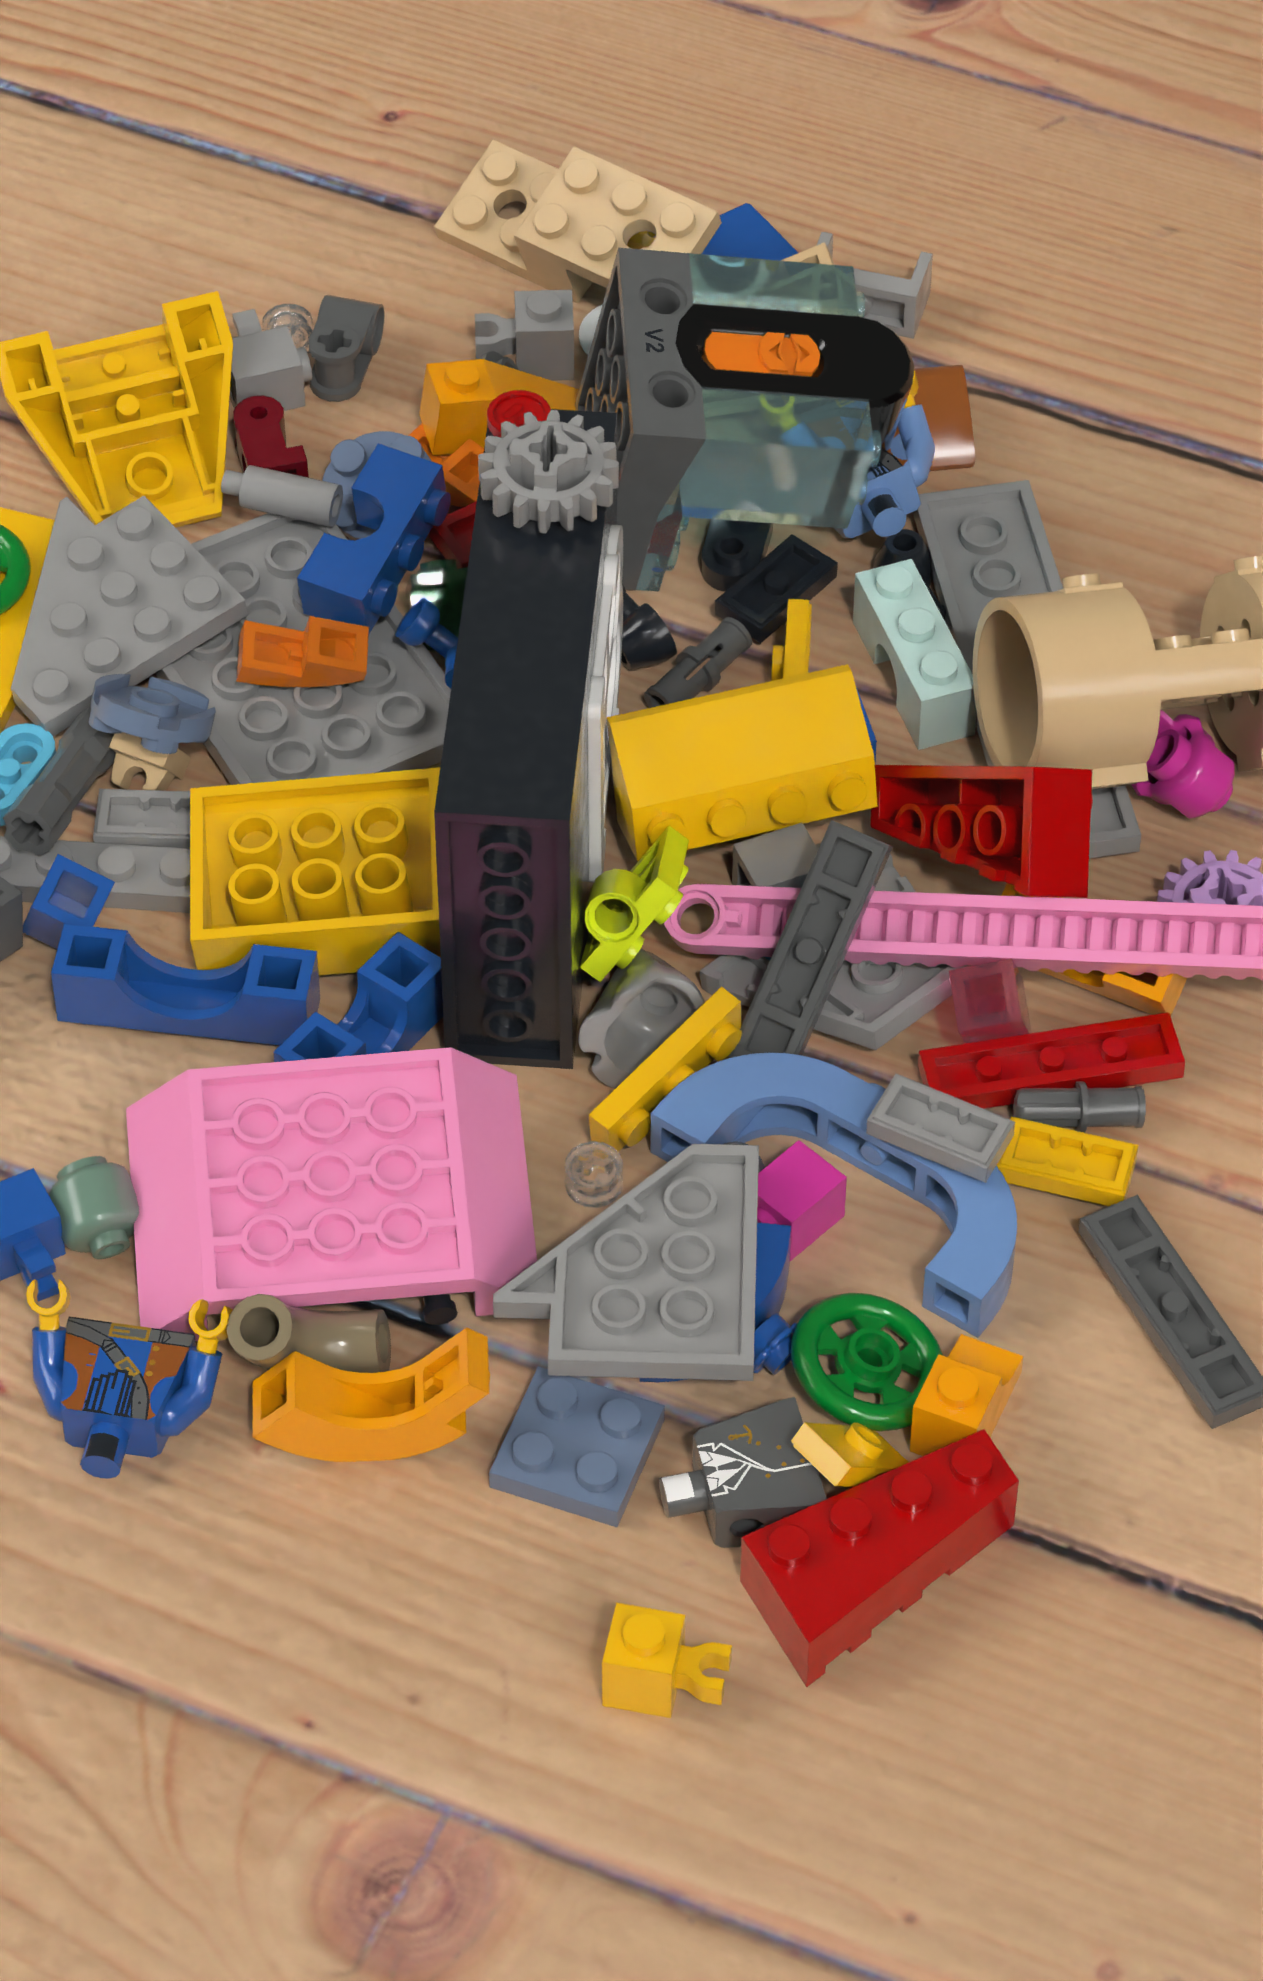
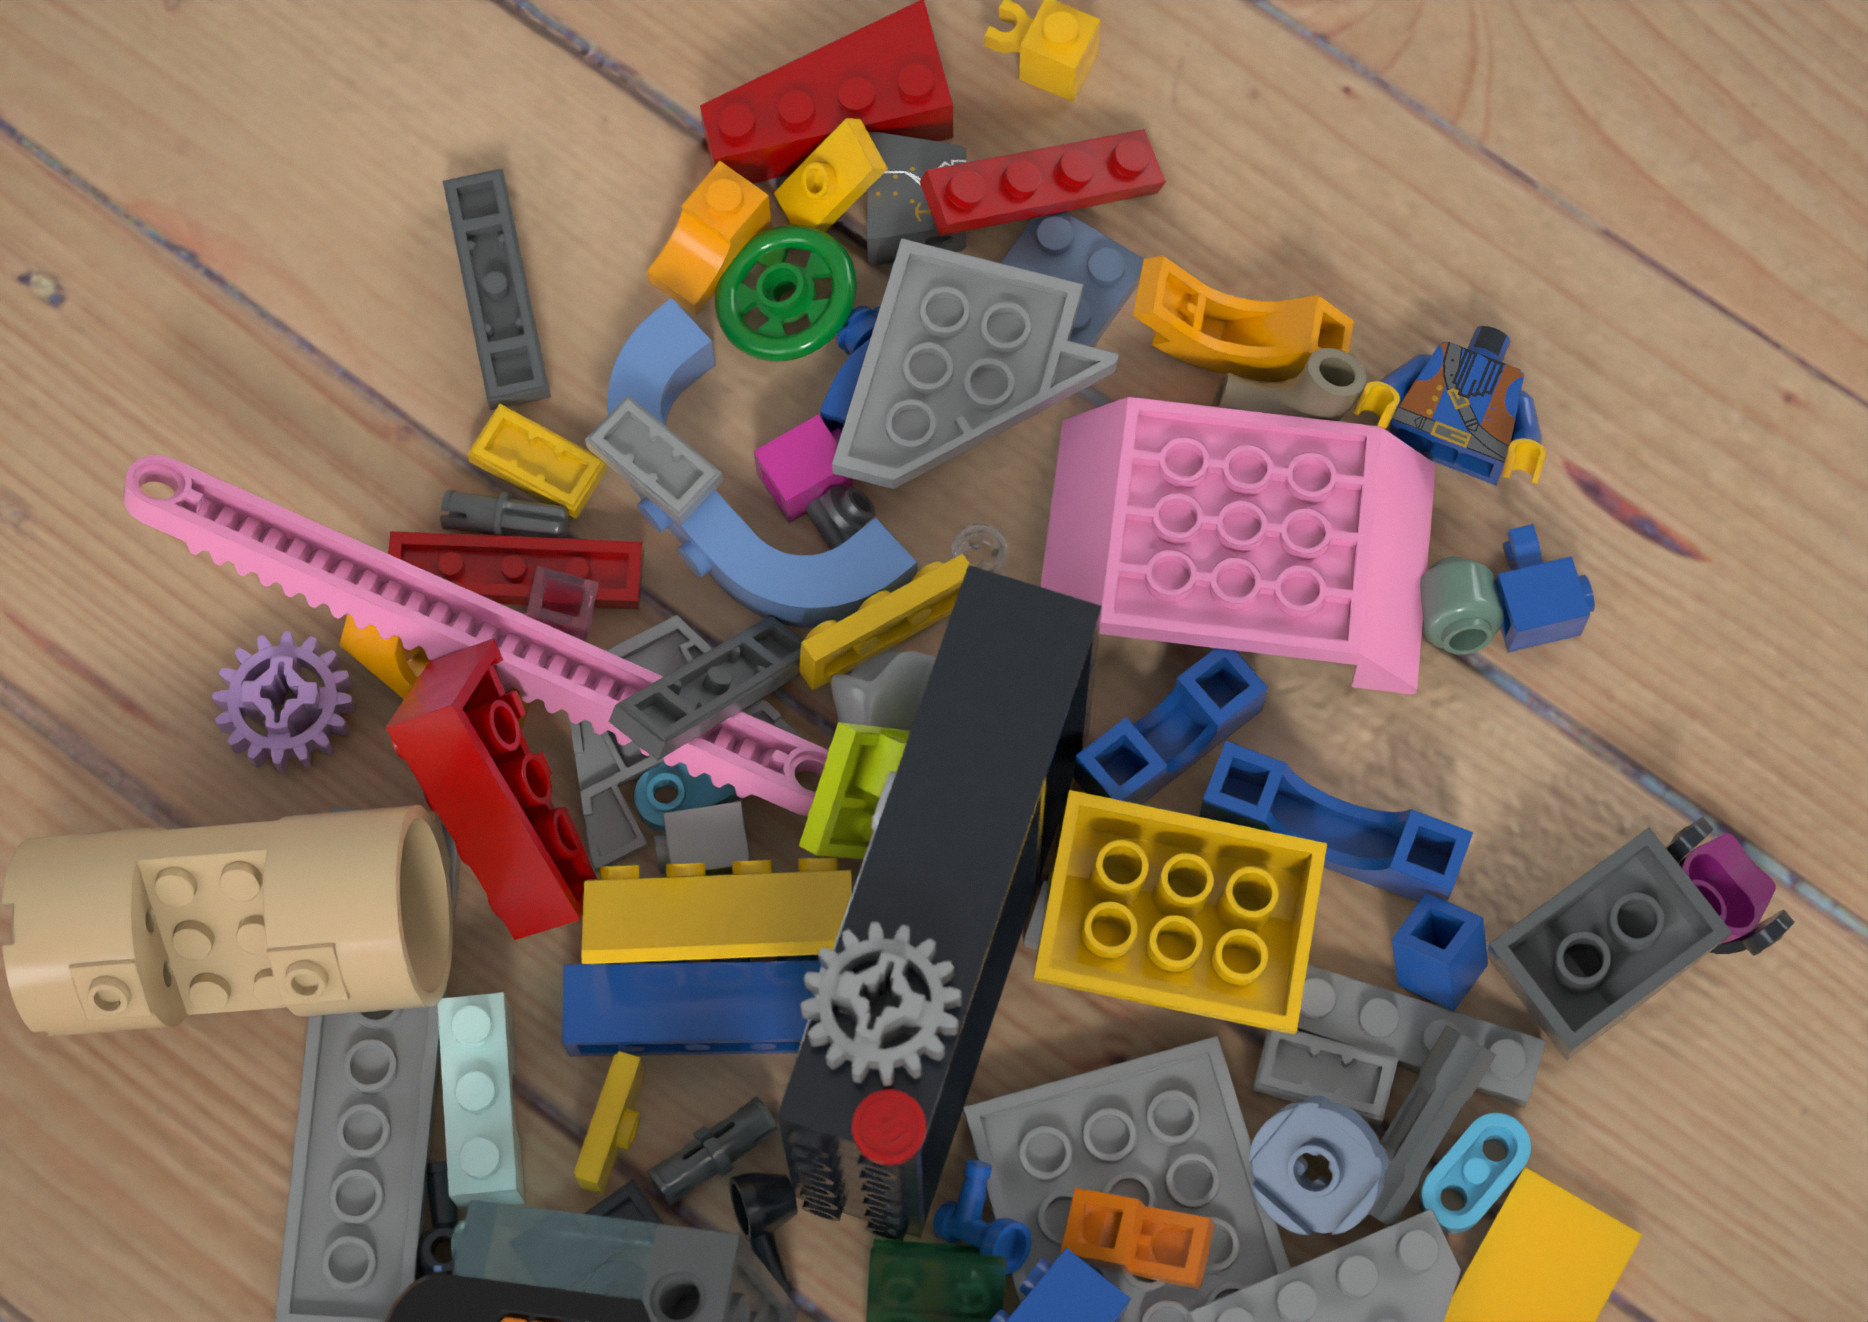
camera: 165 degrees left, 20 degrees up
(622, 1503) = (1041, 182): none -> red plate

